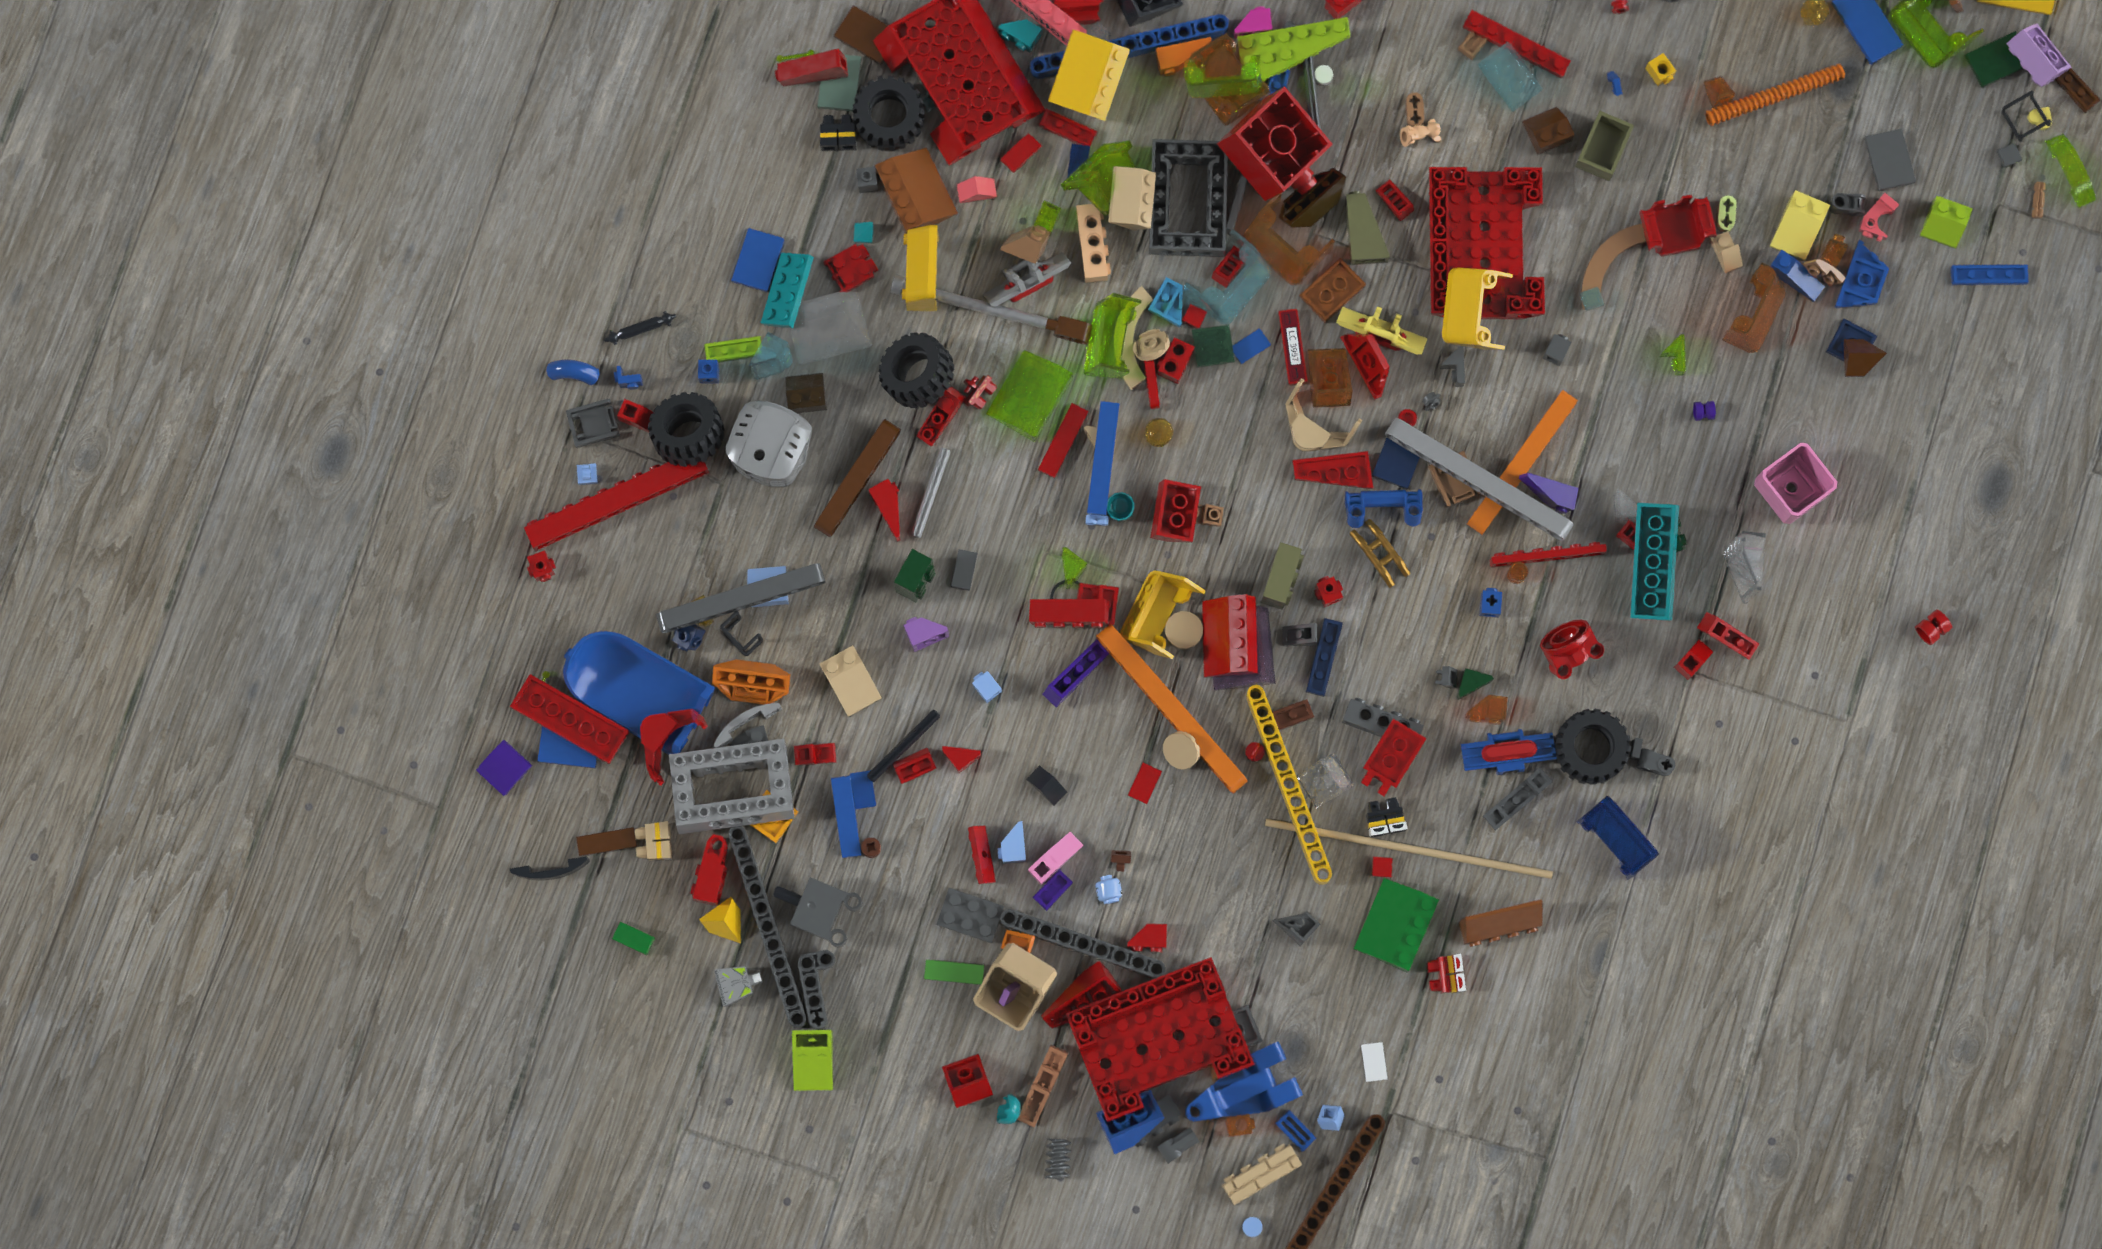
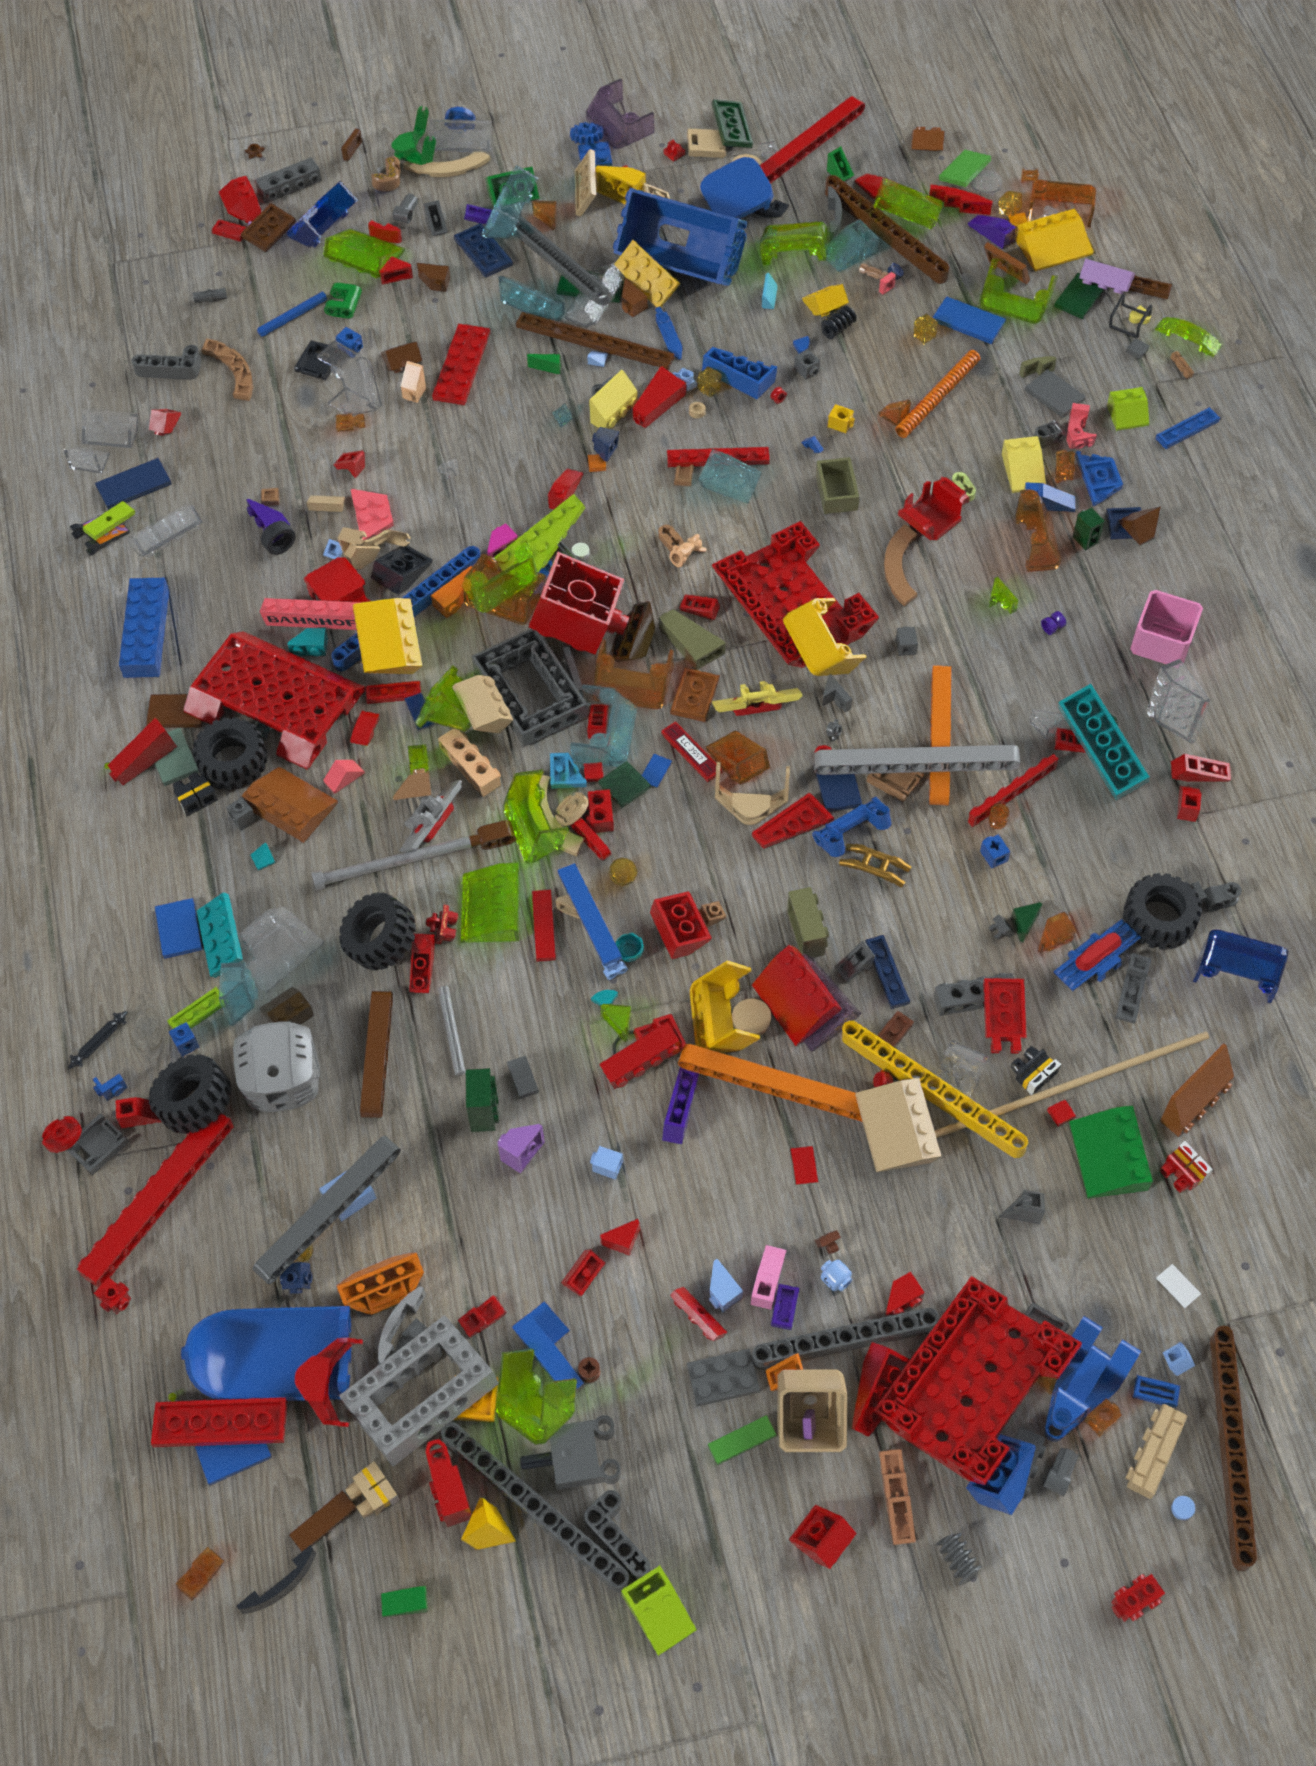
camera: 30 degrees left, 20 degrees down
(497, 825) = (200, 1573): none -> clear orange slope
(504, 767) = (176, 1510): dark purple slope -> none
(569, 399) = (61, 1134): none -> red tile
(573, 370) = (50, 1105): blue cylinder -> none
(587, 474) = (115, 1191): light blue tile -> none
(726, 633) = (333, 1247): black piece -> none
(736, 984) = (535, 1582): light grey torso -> none
(803, 847) = (522, 1405): none -> clear neon green windscreen
(850, 681) = (475, 1230): tan slope -> none
(852, 267) = (268, 889): red plate -> none
(887, 502) = (414, 1057): red slope -> none
(903, 745) = (561, 1260): black axle -> none
(921, 268) = (334, 851): yellow windscreen -> none
(1010, 1111) = (882, 1540): teal hair -> none
(1047, 785) = (717, 1216): black slope -> none
(1073, 539) = (604, 997): none -> teal tile
(1181, 750) = (818, 1114): tan tile -> none
(1236, 799) = (898, 1125): none -> tan slope
(1328, 598) = (854, 914): red brick -> none
(1368, 360) = (762, 725): red wing -> none
(1548, 130) = (786, 499): reddish brown slope -> none
(1552, 493) = (978, 737): dark purple slope -> none
(1570, 647) = (1085, 845): red piece -> none
(1592, 298) = (906, 591): clear light blue tile -> none
(1727, 252) = (985, 511): tan slope -> none
(1805, 333) = (1088, 528): none -> dark green brick
(1822, 269) = (1068, 481): medium nougat slope -> none
(1898, 121) = (1037, 365): none -> olive slope

